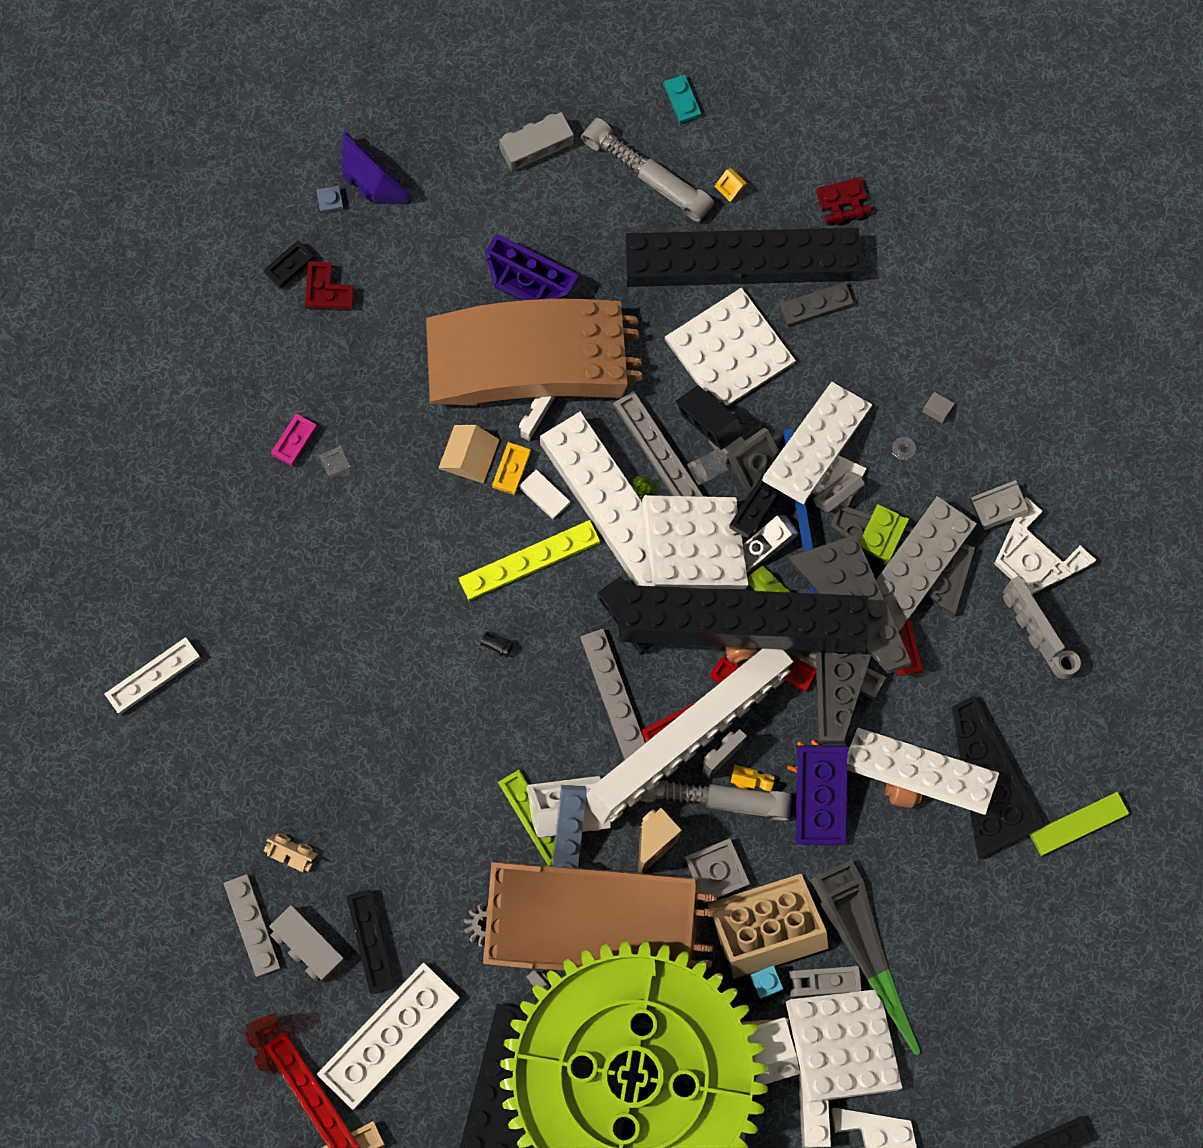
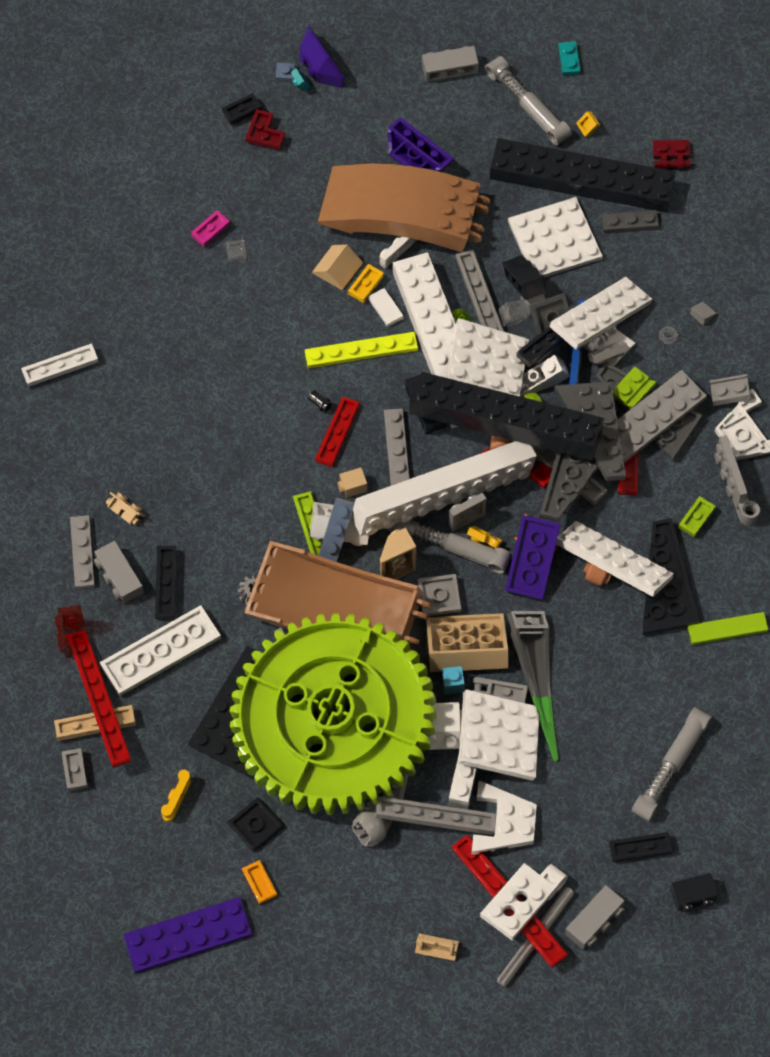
camera: 20 degrees right, 10 degrees down
(353, 207) = (300, 80): none -> teal plate
(529, 679) = (337, 432): none -> red tile
(568, 746) = (352, 482): none -> tan brick
(1003, 684) = (696, 516): none -> lime plate
(1075, 965) = (672, 762): none -> light grey piece

